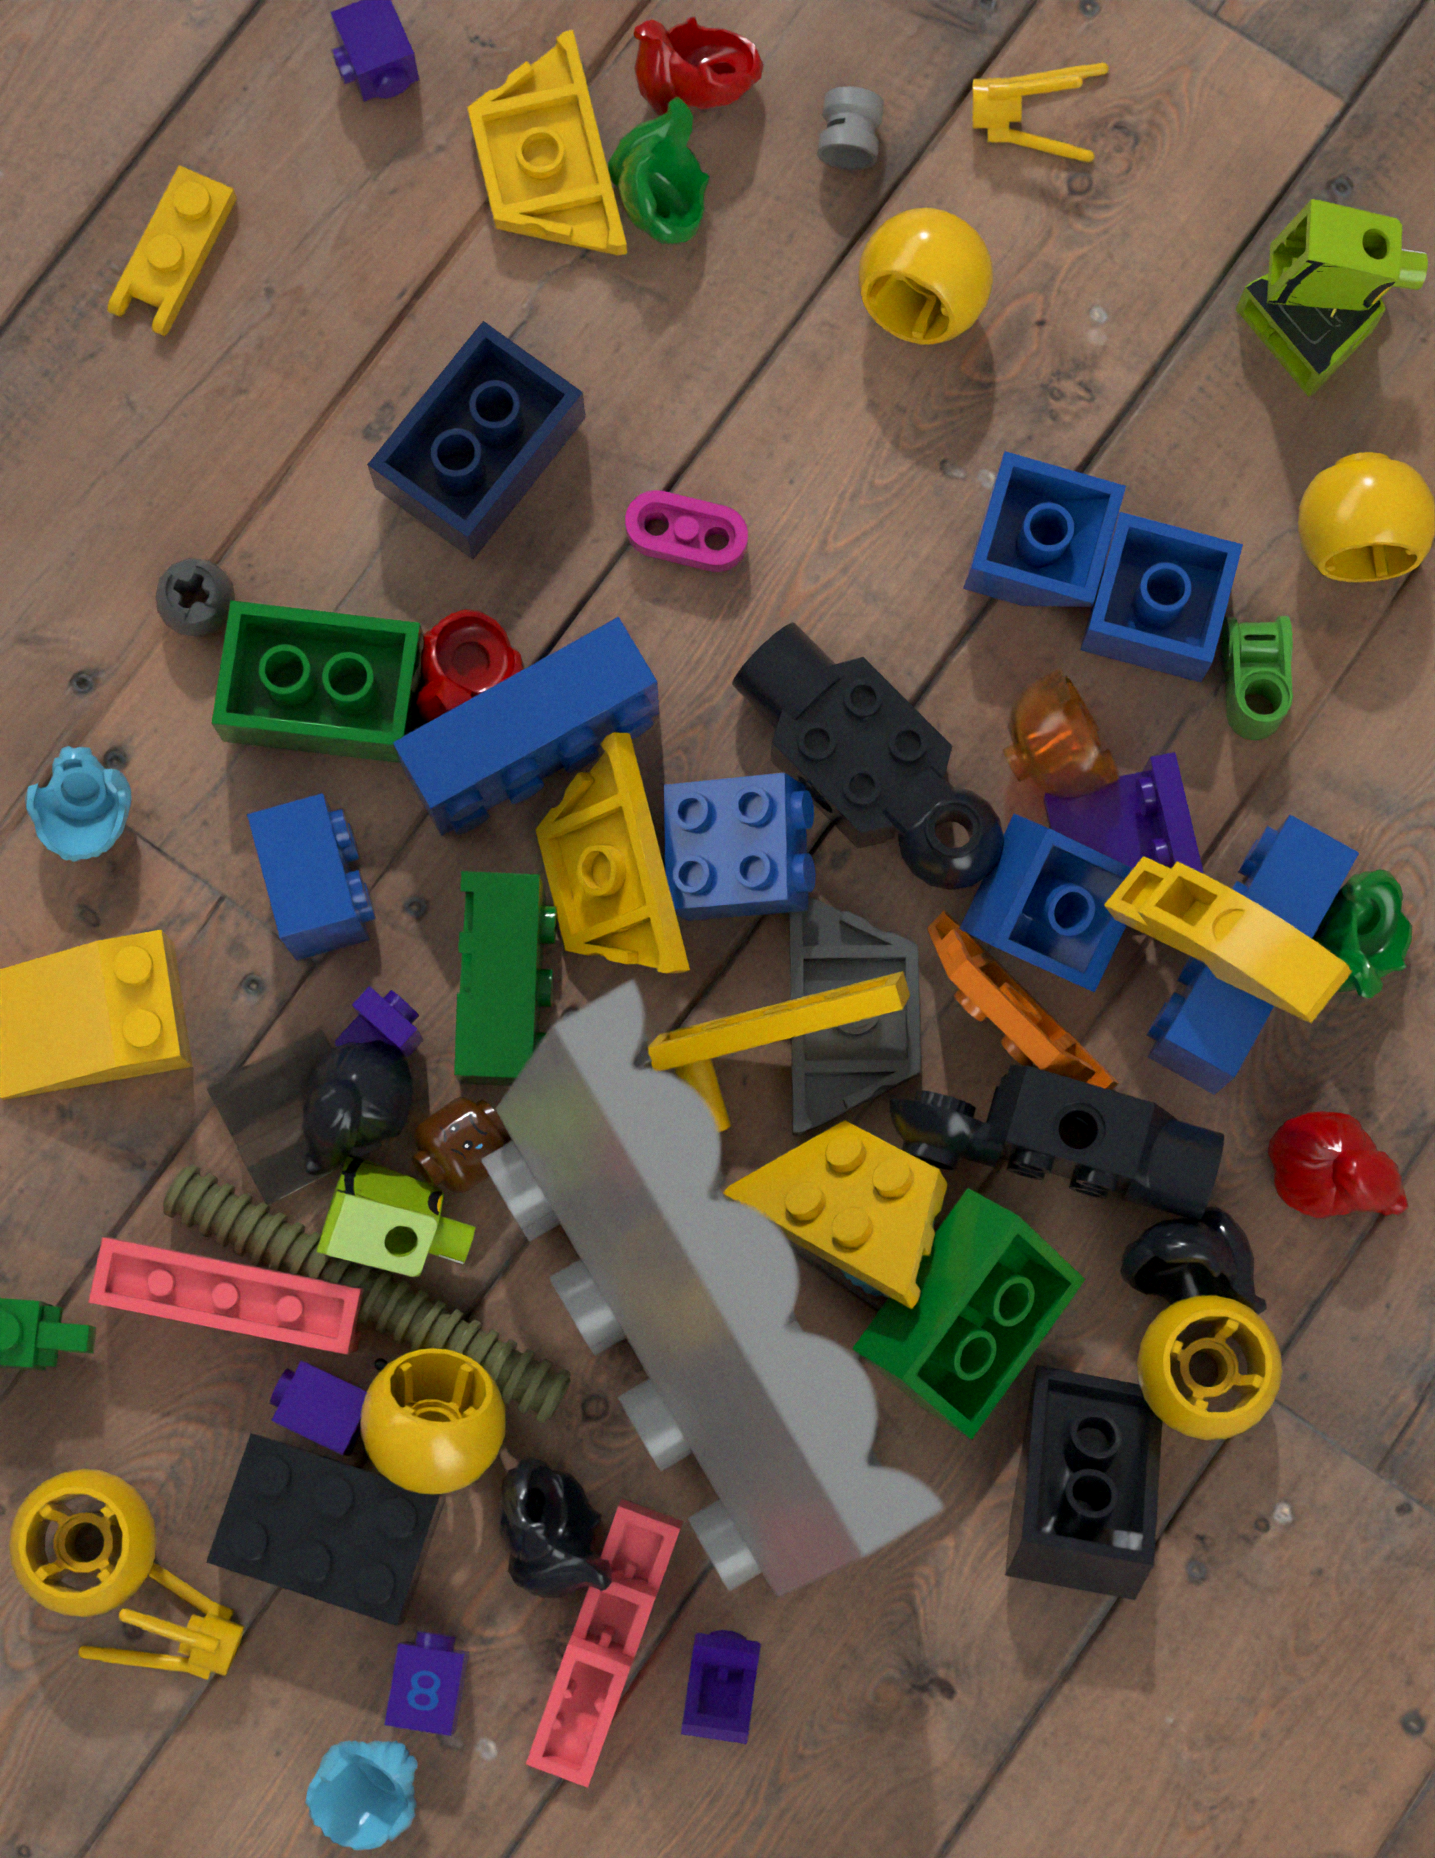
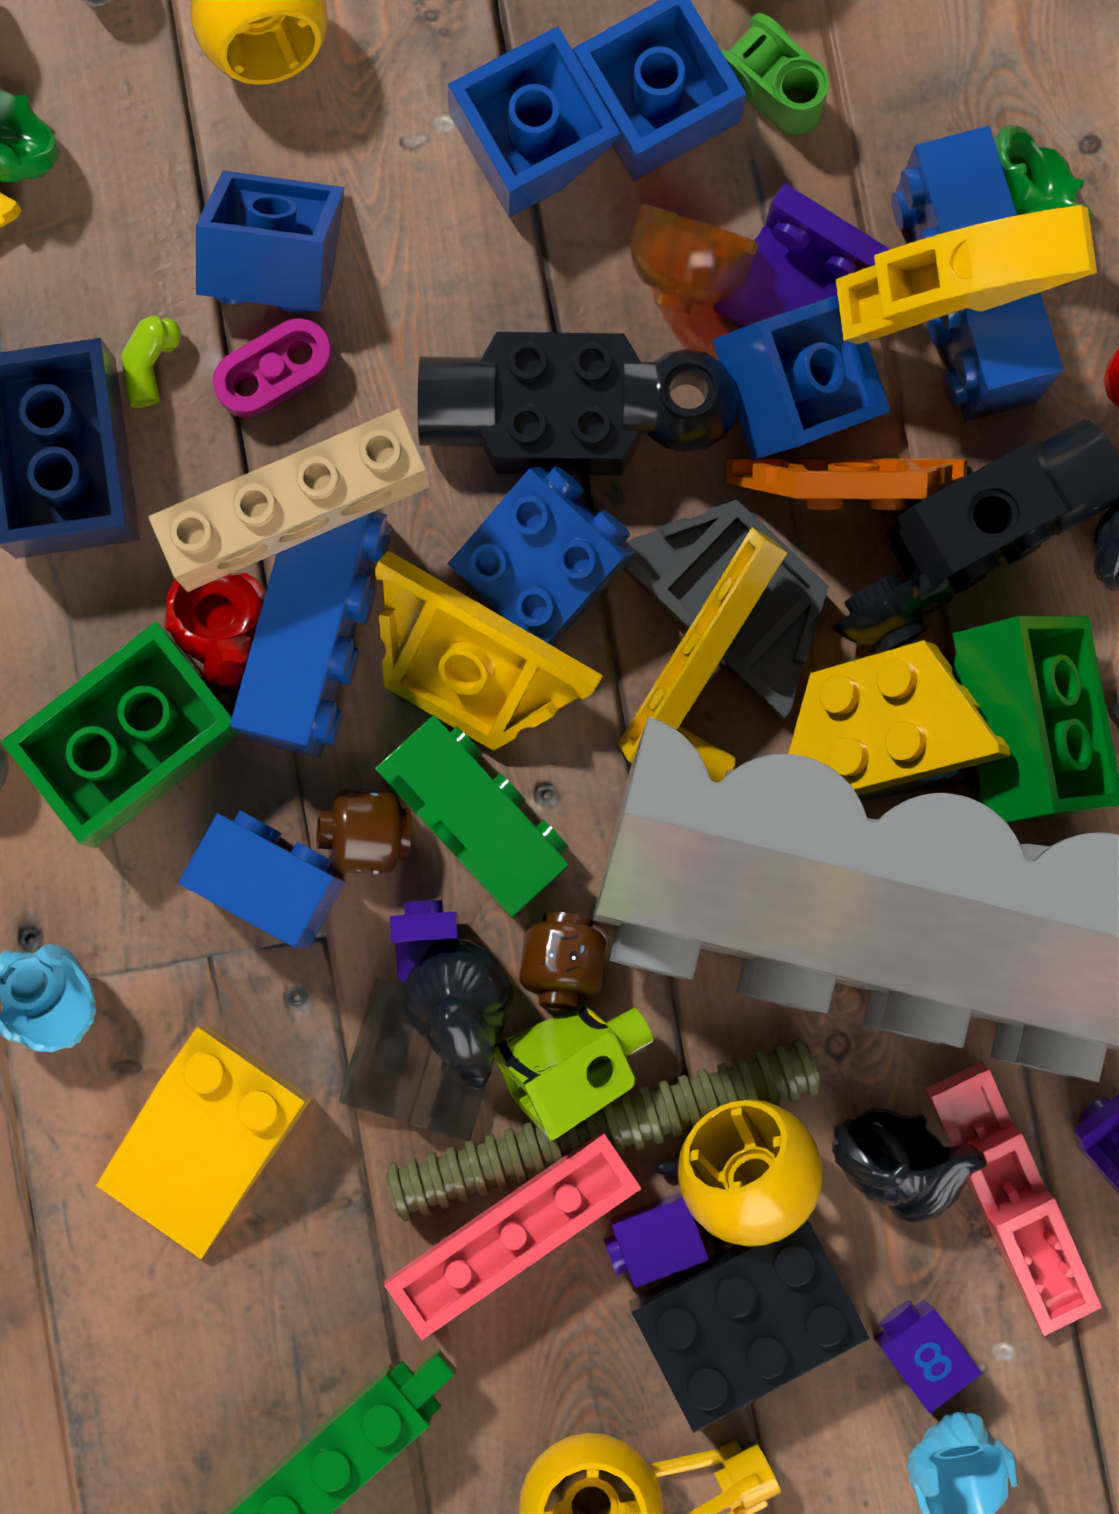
camera: 45 degrees left, 5 degrees up
(416, 915) = (364, 831): none -> reddish brown head
(588, 628) = (290, 501): none -> tan brick
(604, 432) = (140, 354): none -> lime arm
(774, 439) = (268, 241): none -> blue slope

